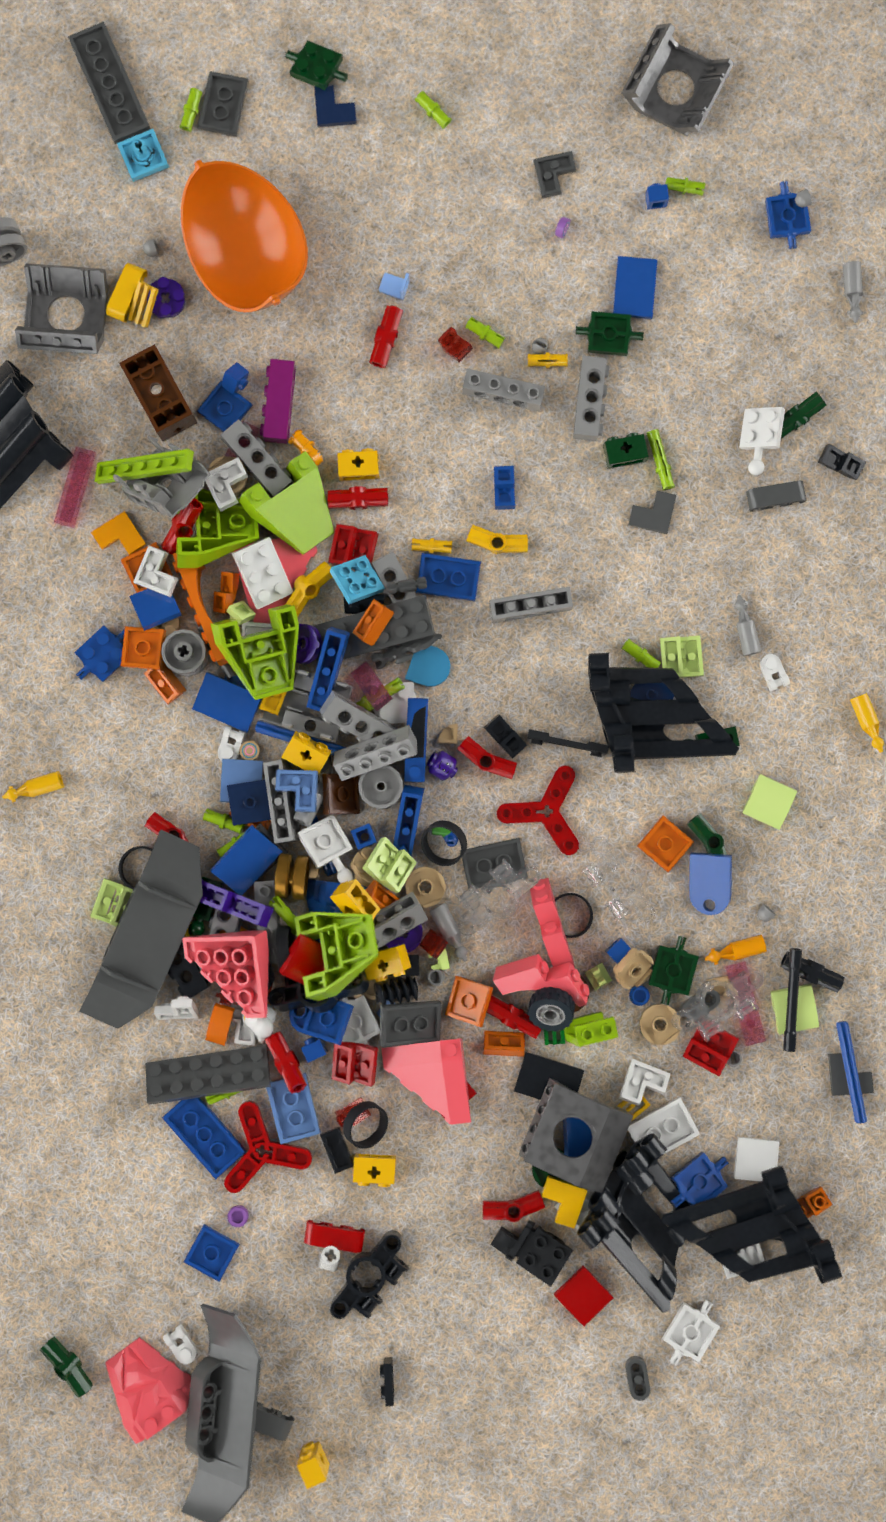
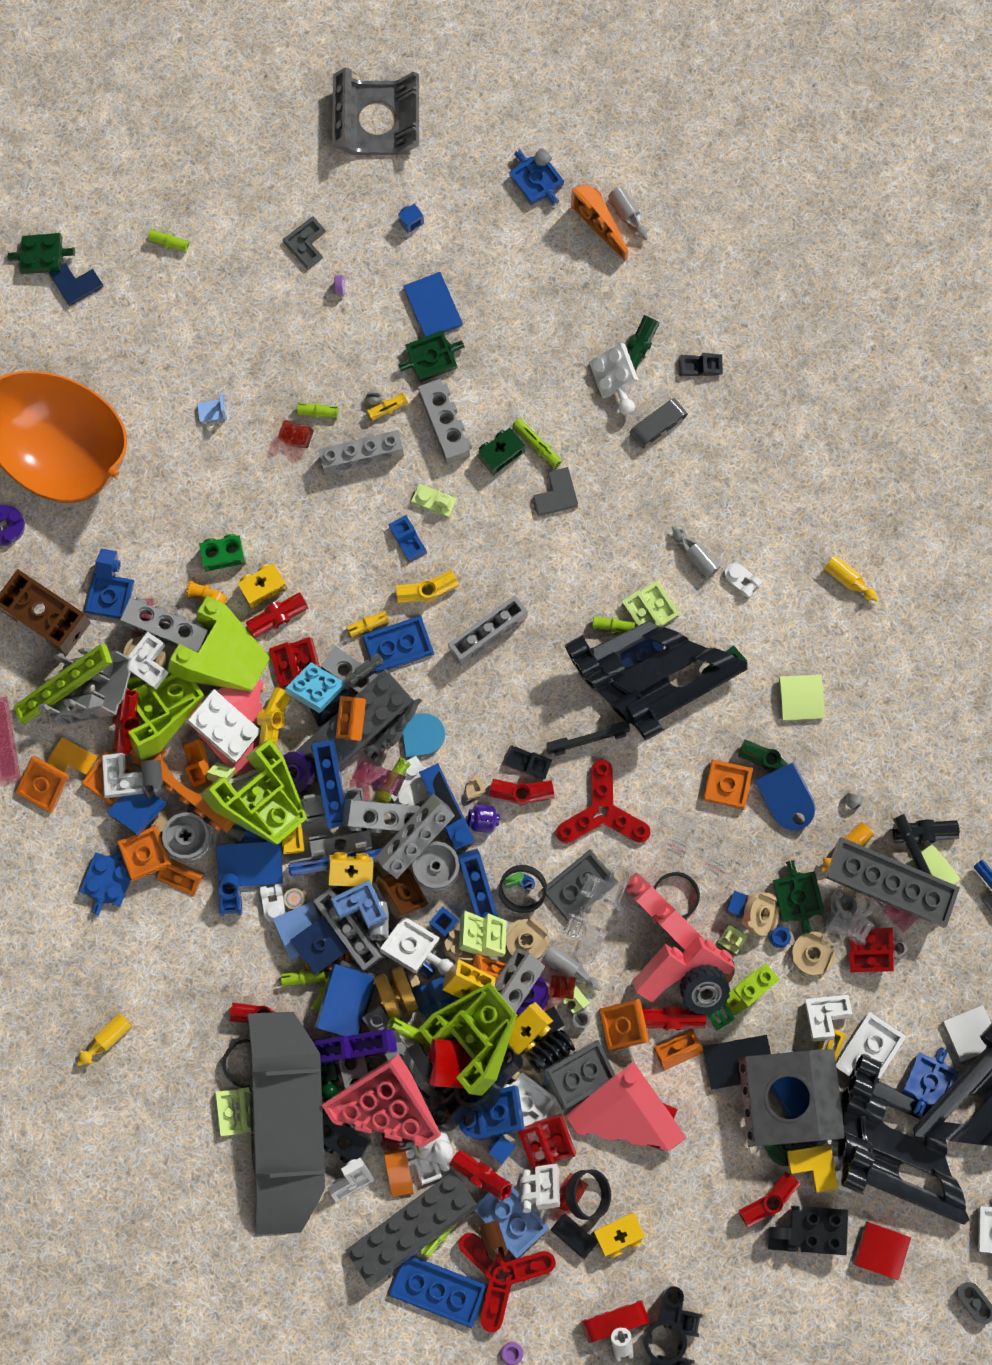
camera: 30 degrees left, 10 degrees down
(87, 543) = (42, 784): none -> orange plate
(179, 587) = (152, 775): none -> dark grey piece
(196, 724) = (230, 899): none -> blue piece
(268, 1120) = (492, 1239): none -> reddish brown piece
(279, 401) = (158, 564): magenta brick -> none
(334, 1101) = (547, 1188): none -> white plate
(337, 423) = (223, 558): none -> green brick
(385, 336) = (228, 458): red piece -> none
(544, 465) = (433, 500): none -> yellowish green hinge
(685, 186) = (431, 197): lime axle -> none
(759, 1004) = (892, 882): none -> dark grey plate
(822, 269) = (593, 210): none -> orange wedge

